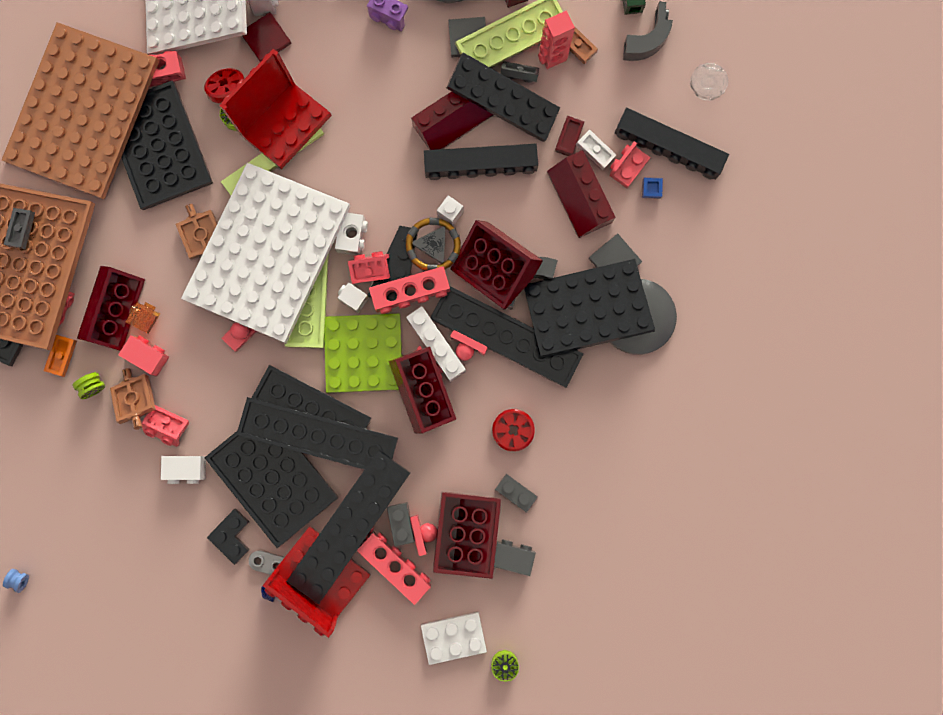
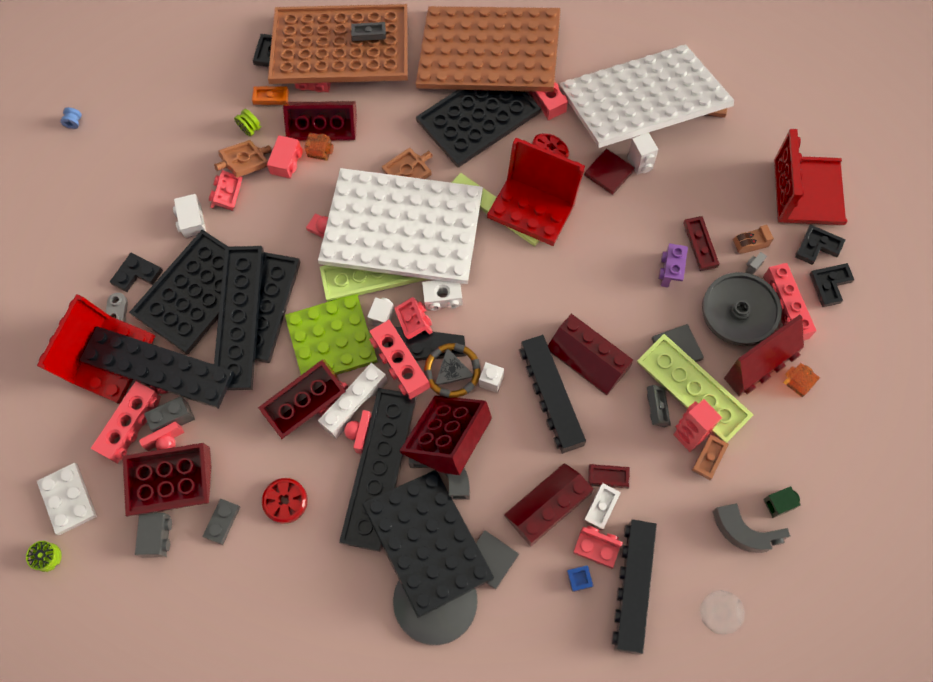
camera: 80 degrees right, 15 degrees down
(503, 97) = (622, 395): black plate -> none

